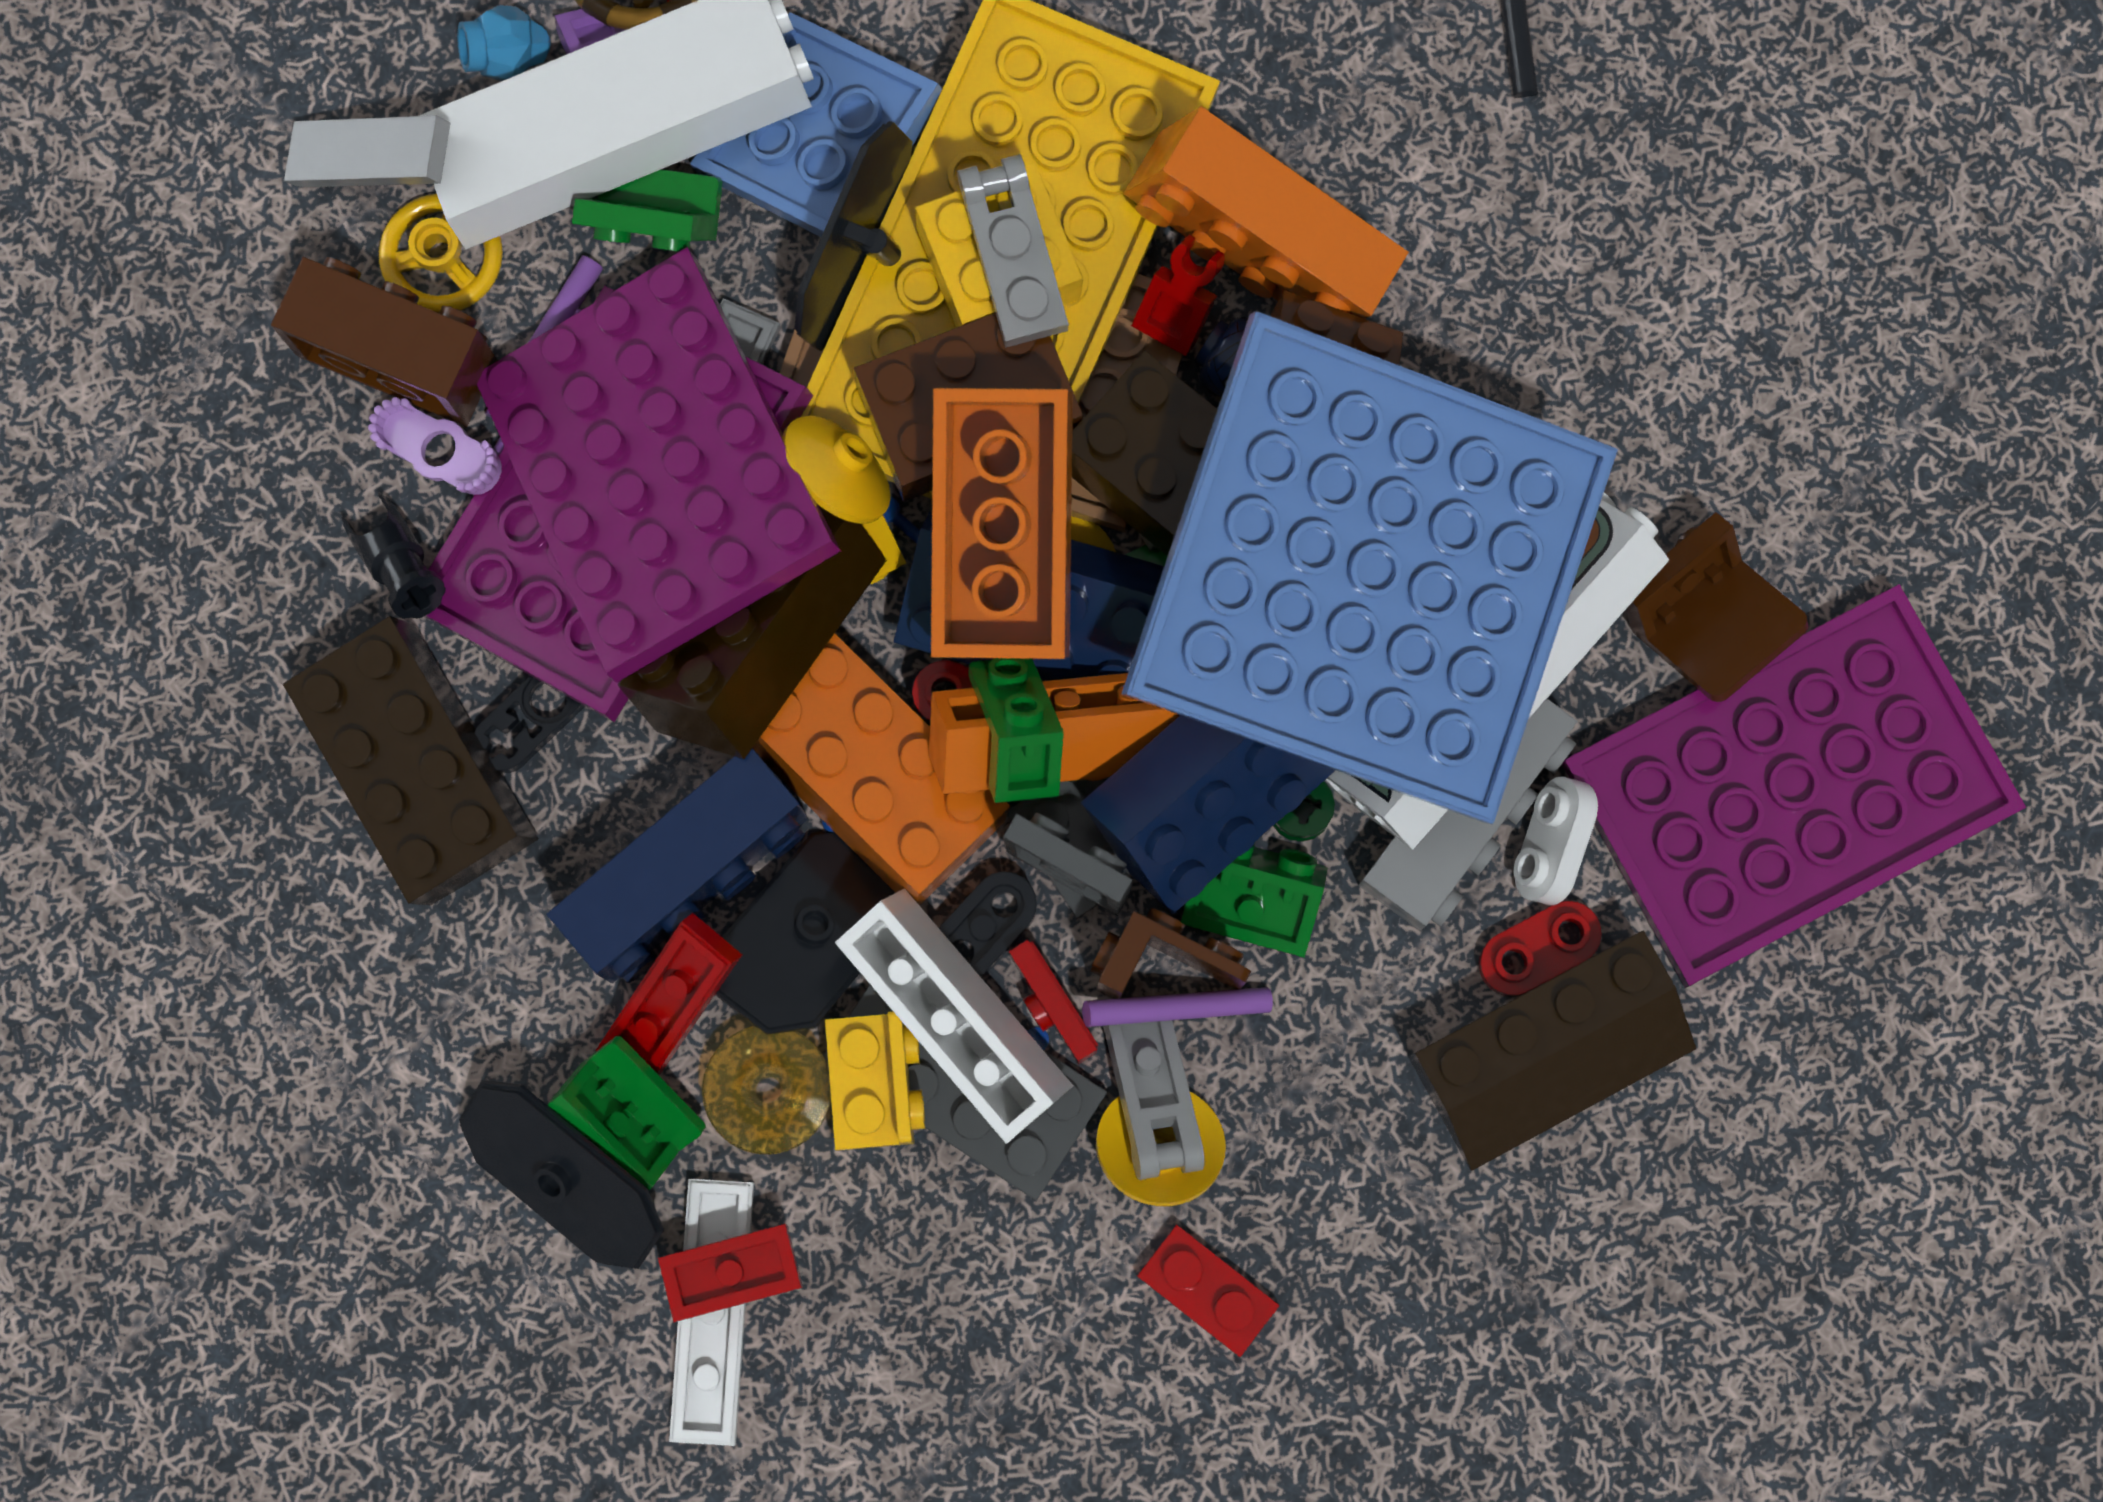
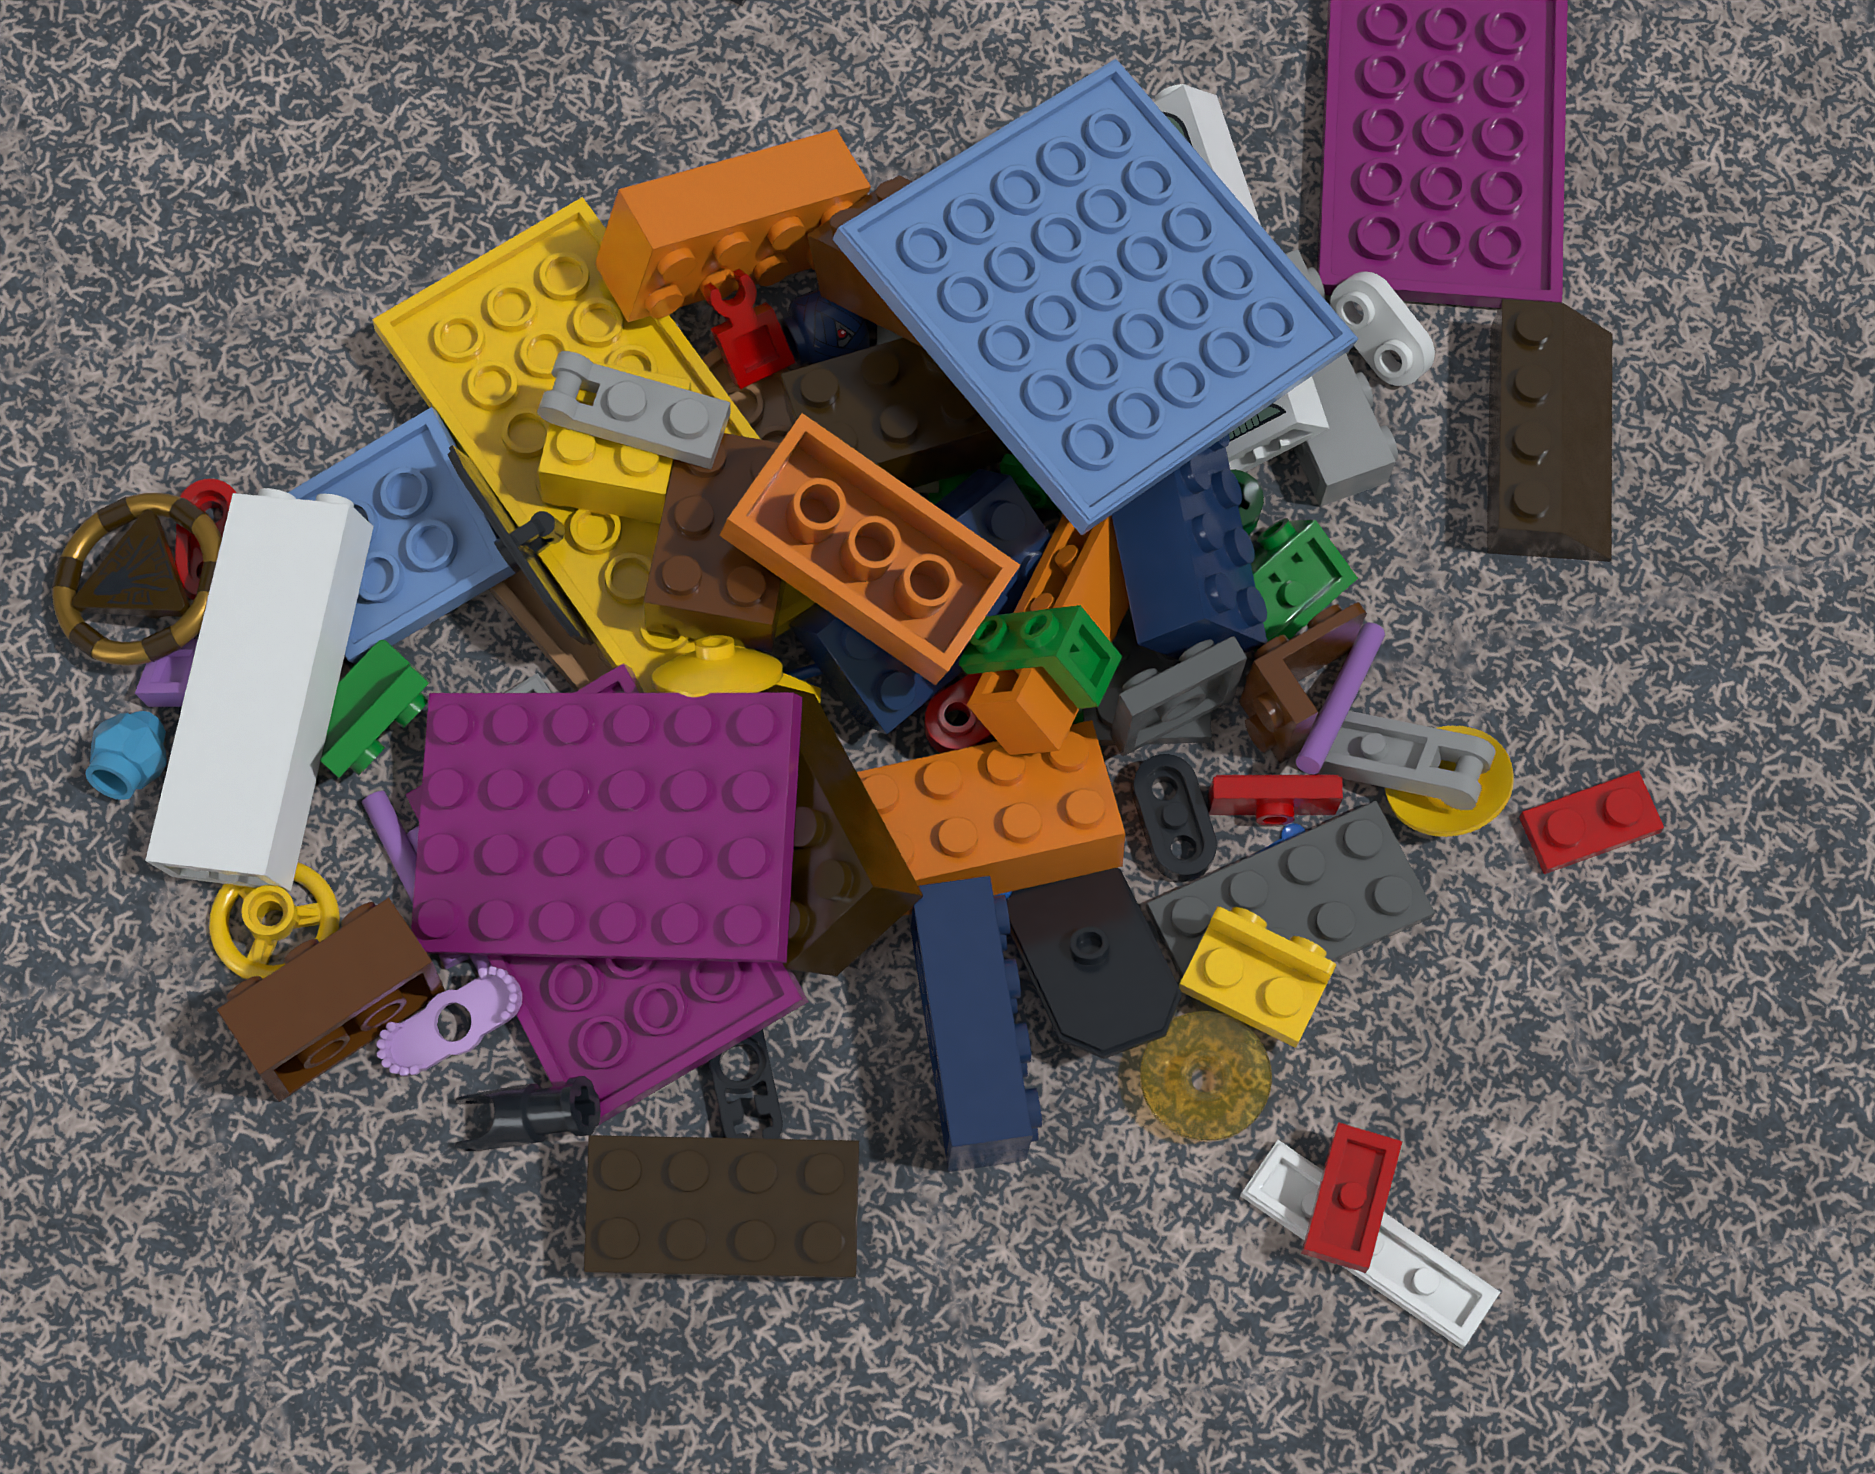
camera: 65 degrees left, 10 degrees down
(367, 151) = (146, 917): light grey tile -> none
(560, 1174) = (1175, 1294): black shield -> none
(627, 1111) = (1158, 1203): green bracket -> none
(674, 992) = (1084, 1105): red tile -> none
(954, 1014) = (1247, 867): white brick -> none
(1540, 947) = (1461, 396): red plate -> none
(1714, 612) = (1278, 102): reddish brown bracket -> none

